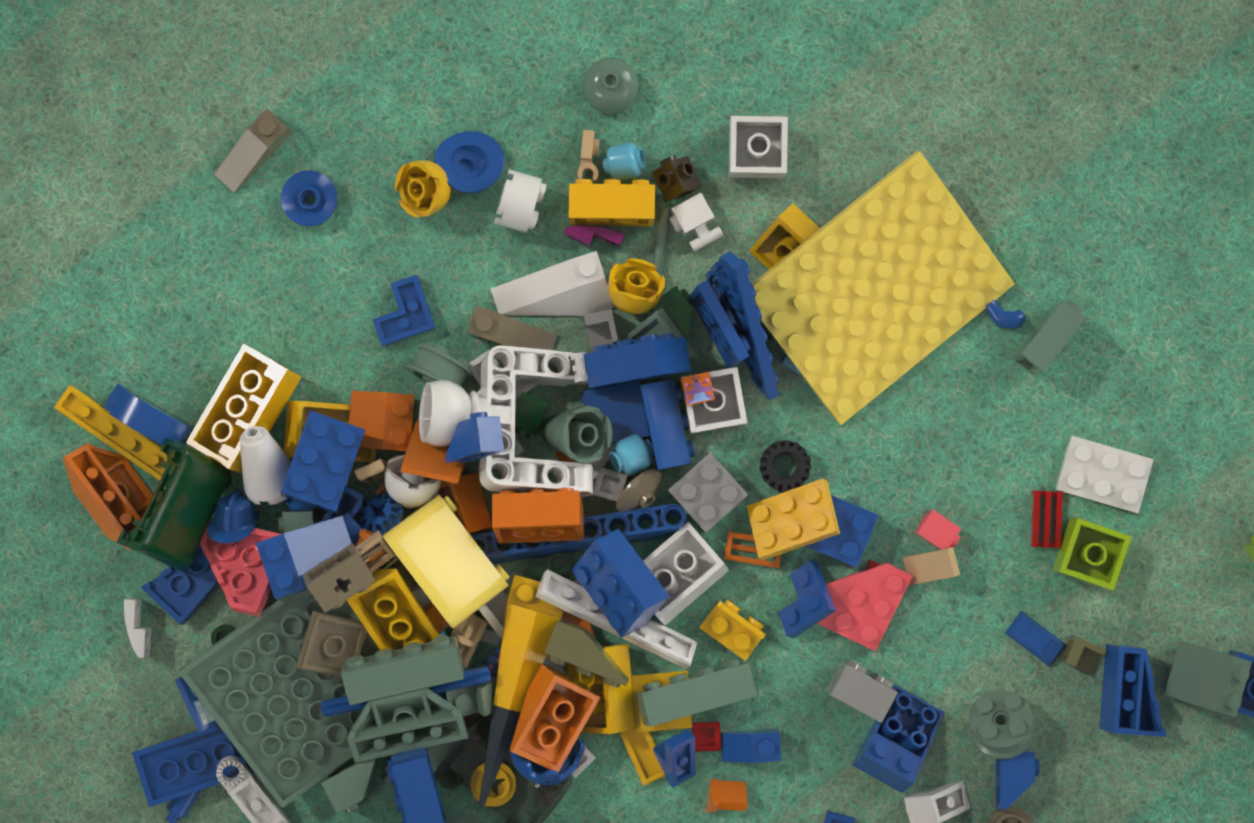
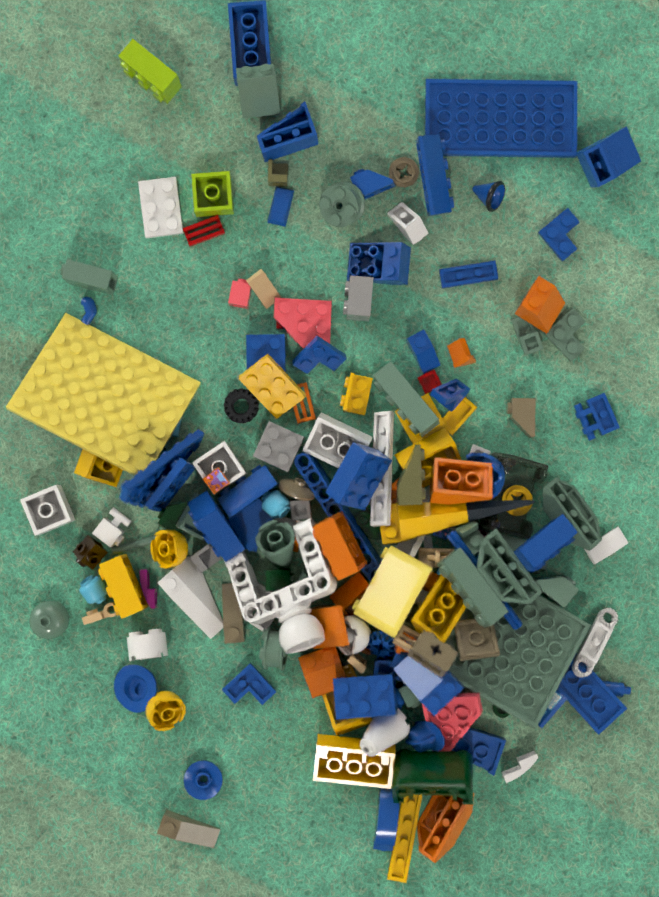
camera: 115 degrees left, 0 degrees up
(476, 439) = (307, 606): blue slope -> none

